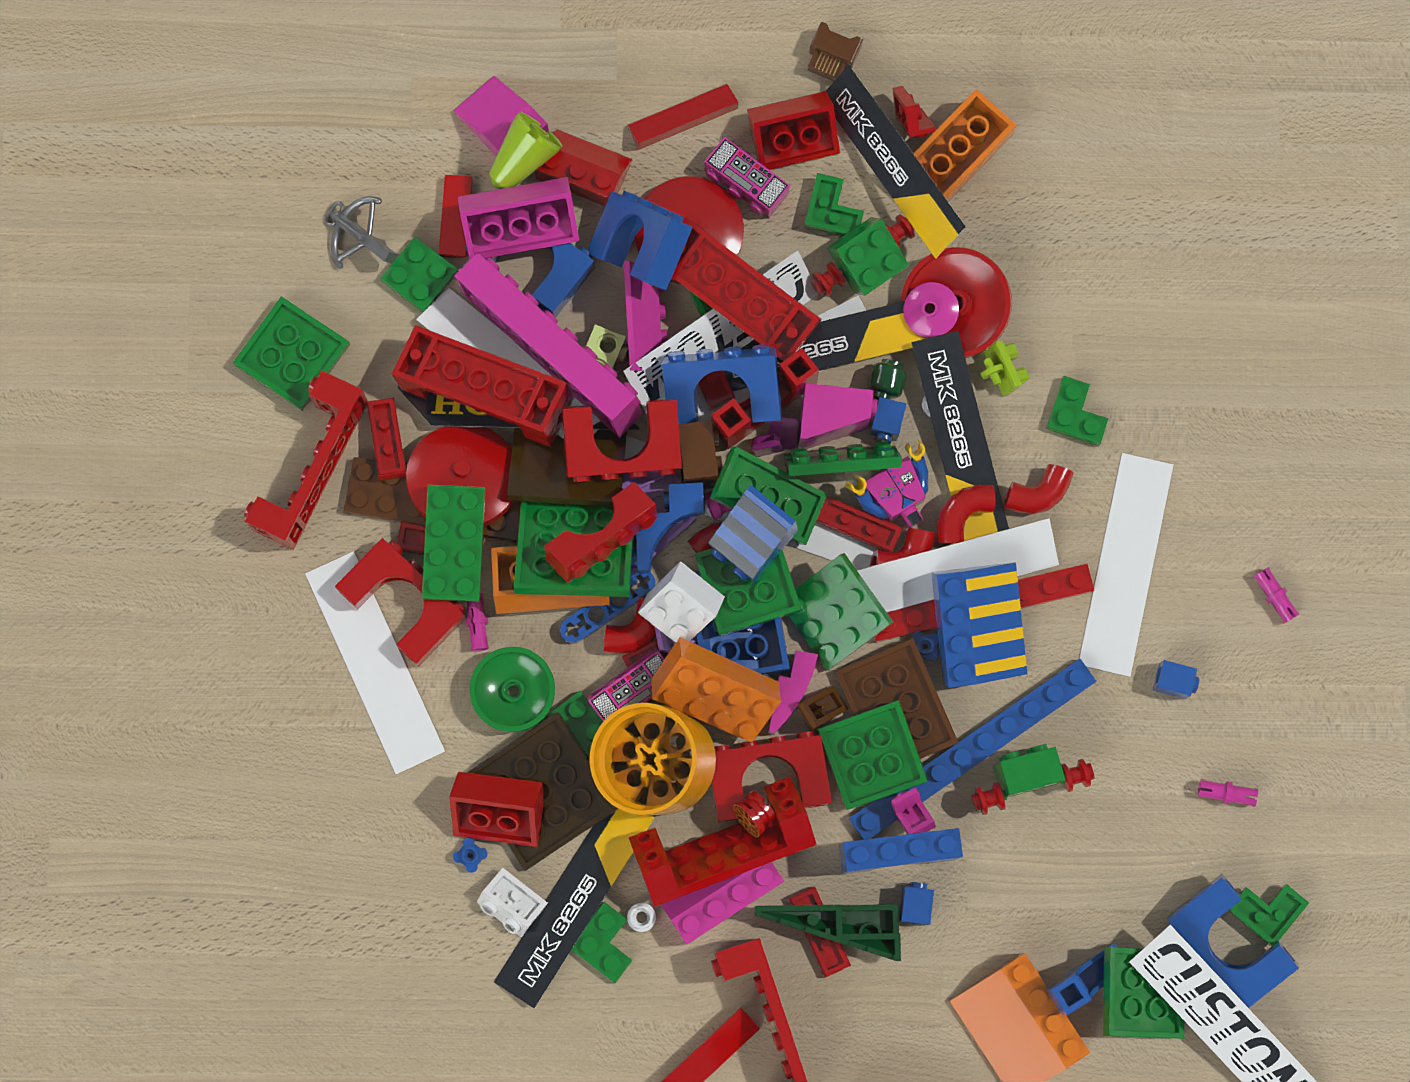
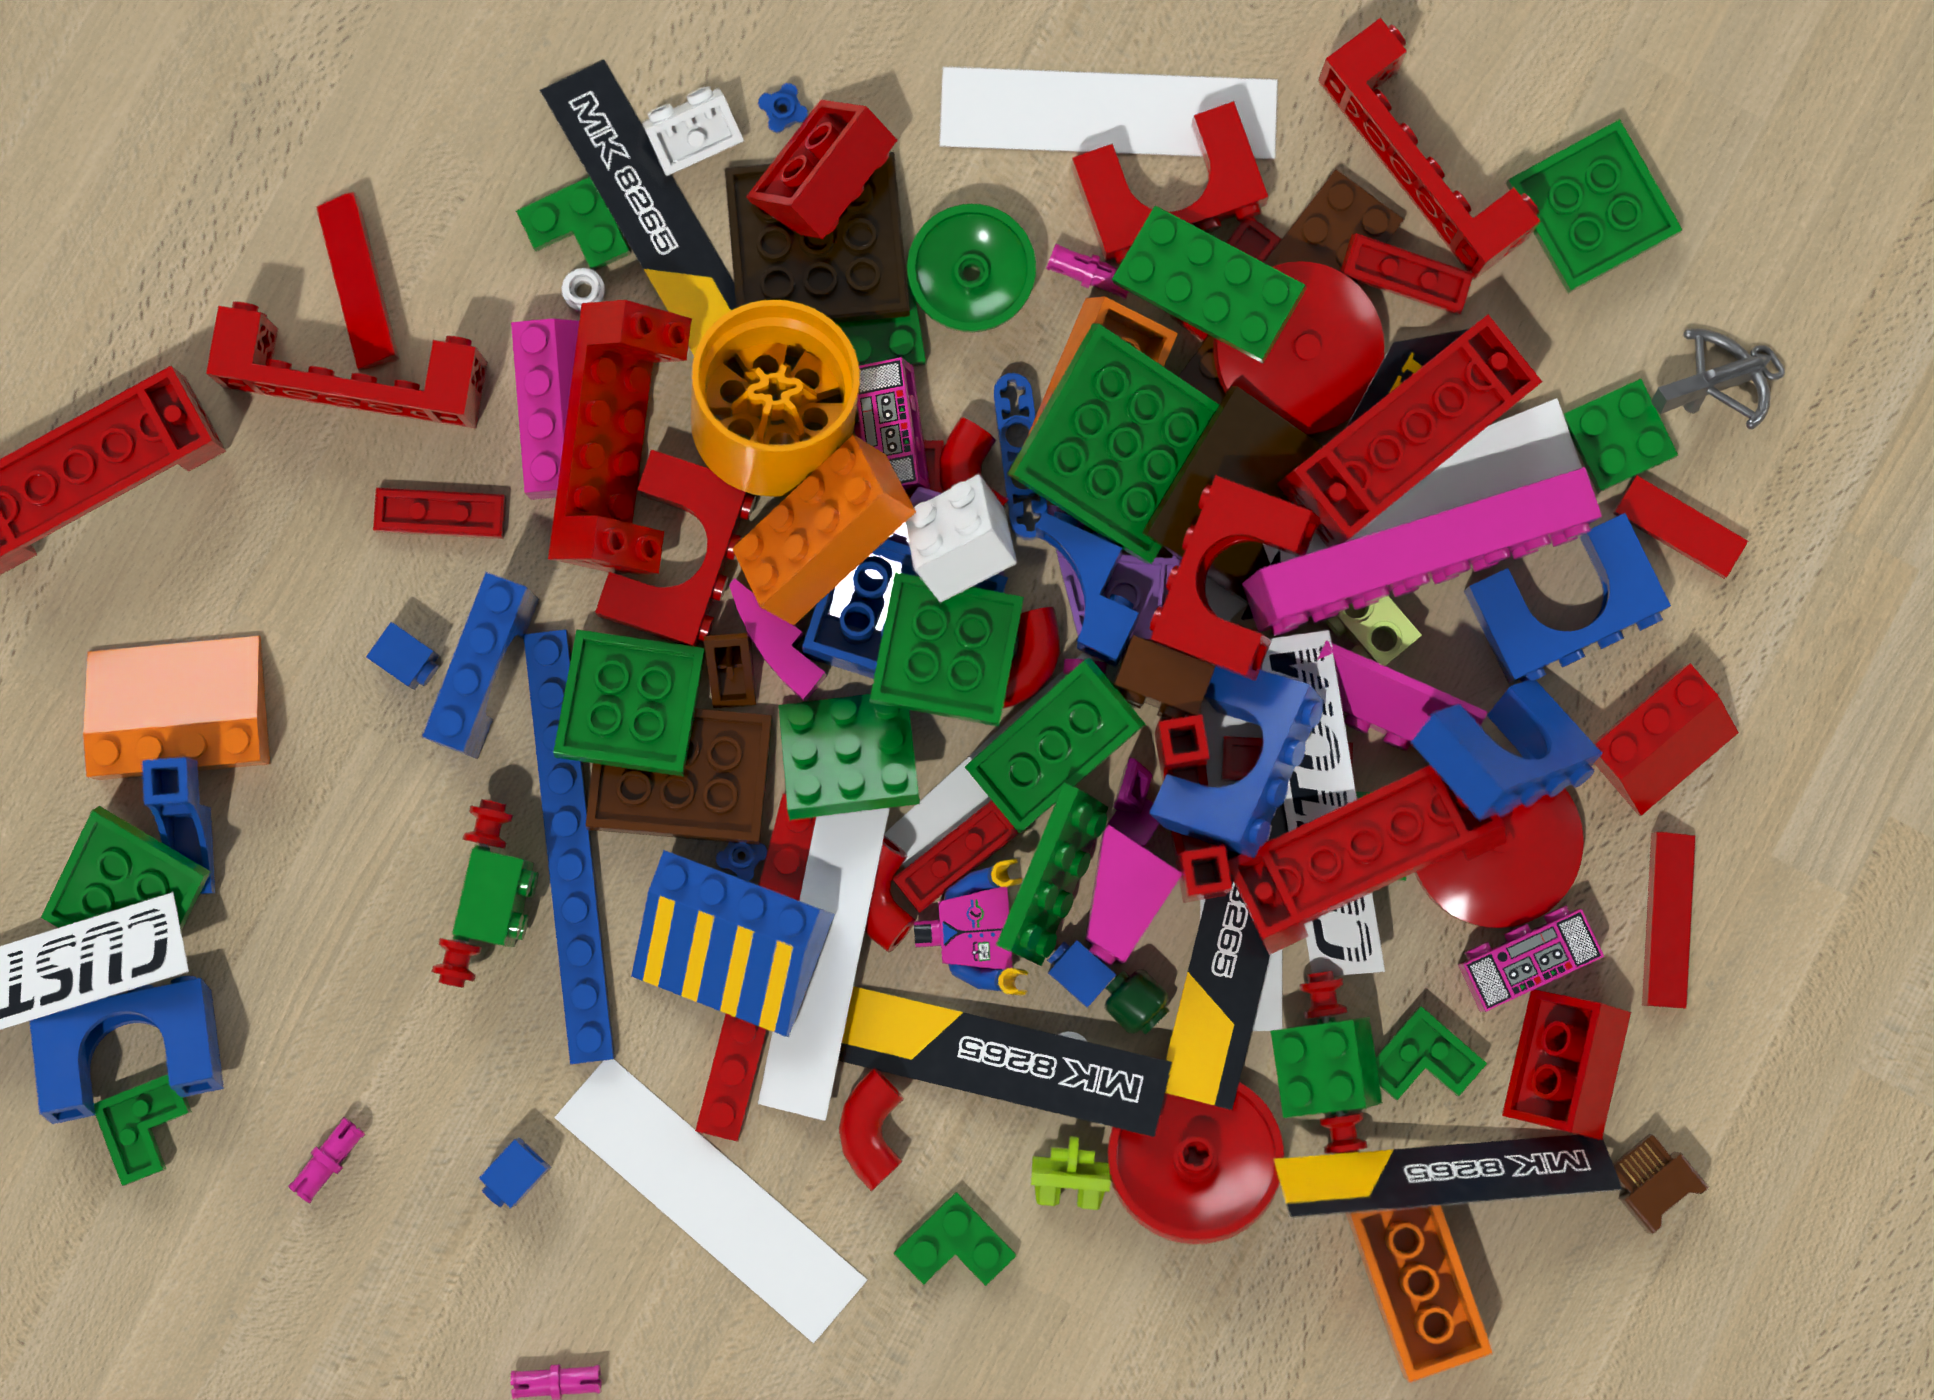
camera: 125 degrees right, 5 degrees up
(491, 112) = (1787, 660): dark pink slope -> none
(518, 218) = (1626, 601): dark pink slope -> none
(522, 152) = (1720, 655): lime cone -> none
(575, 553) = (1101, 430): red arch -> none
(752, 535) = (1002, 681): slope -> none
(754, 814) = (631, 496): red wheel -> none
(858, 926) = (417, 562): dark green wedge -> none
(910, 115) = (1498, 1242): red bracket -> none
(912, 812) = (521, 710): dark pink bracket -> none
(939, 321) = (1199, 1136): dark pink dish -> none
(960, 507) = (903, 1004): red cylinder -> none

